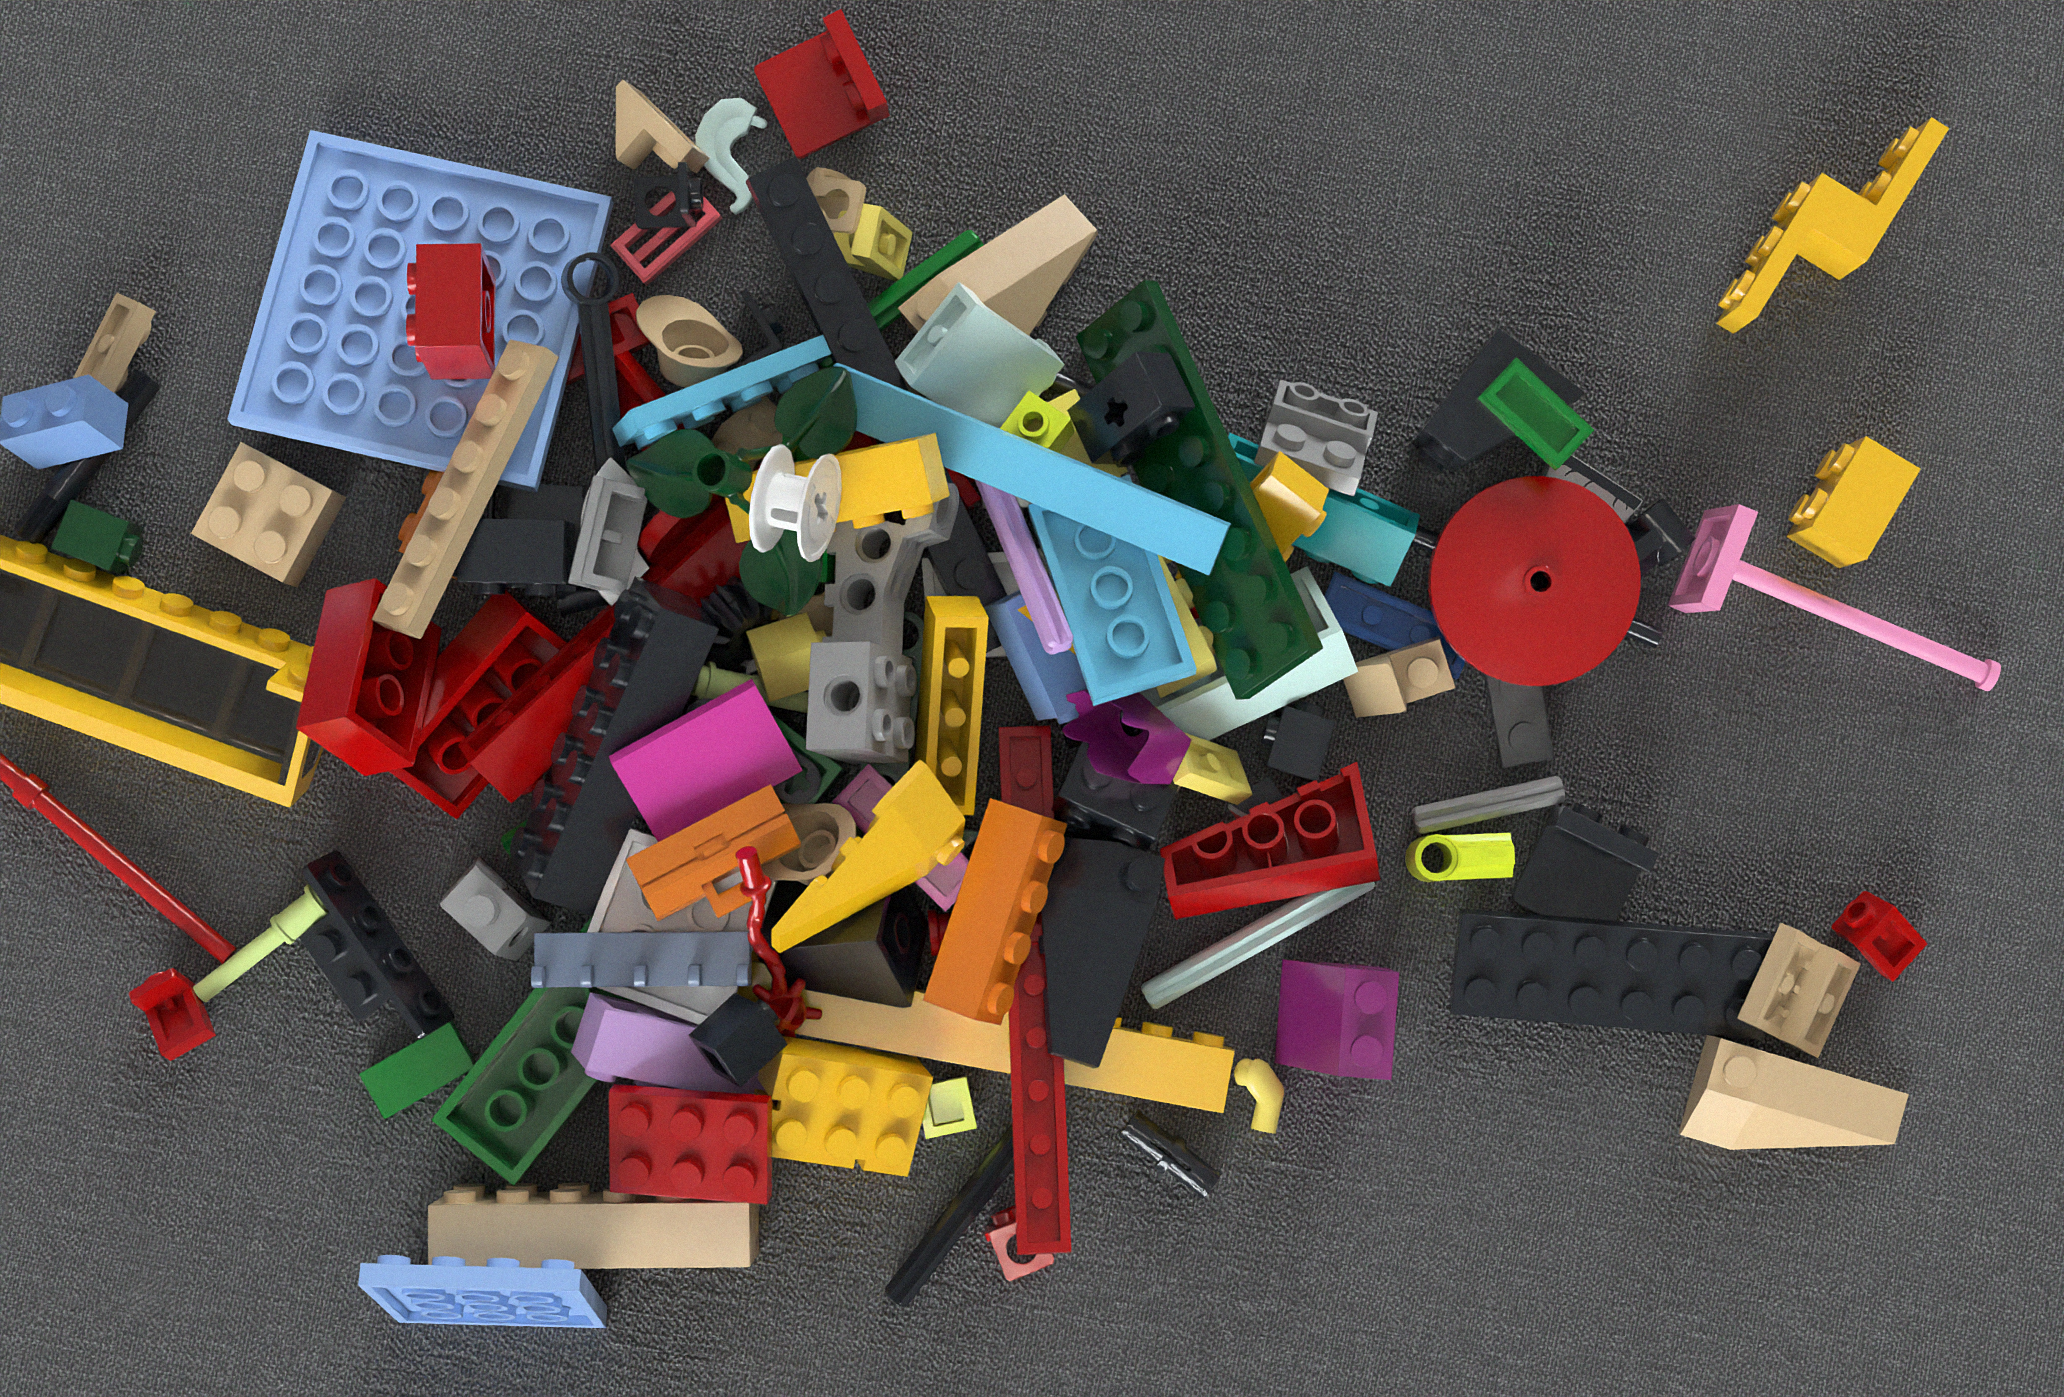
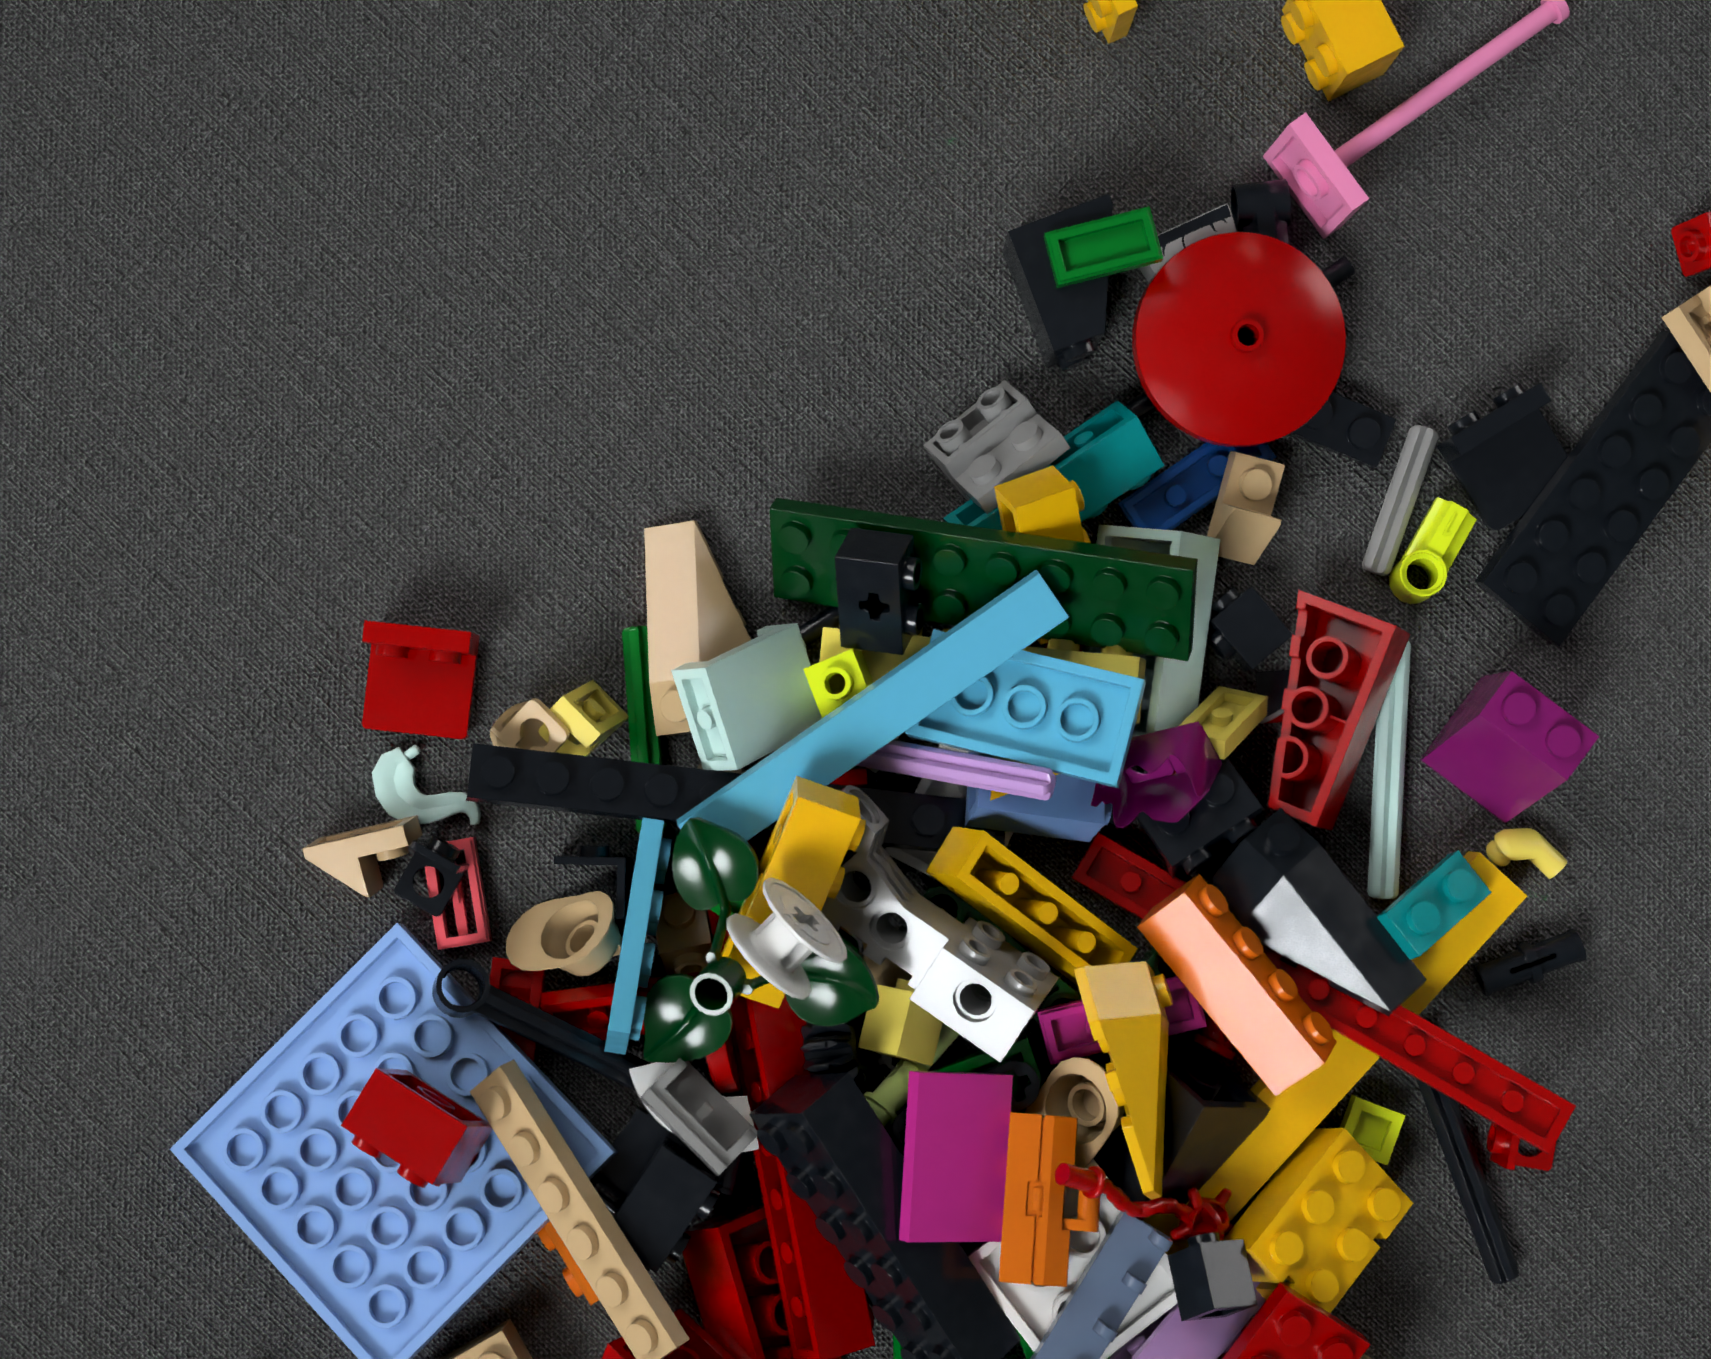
camera: 65 degrees left, 0 degrees up
(1165, 1035) = (1434, 905): none -> teal plate

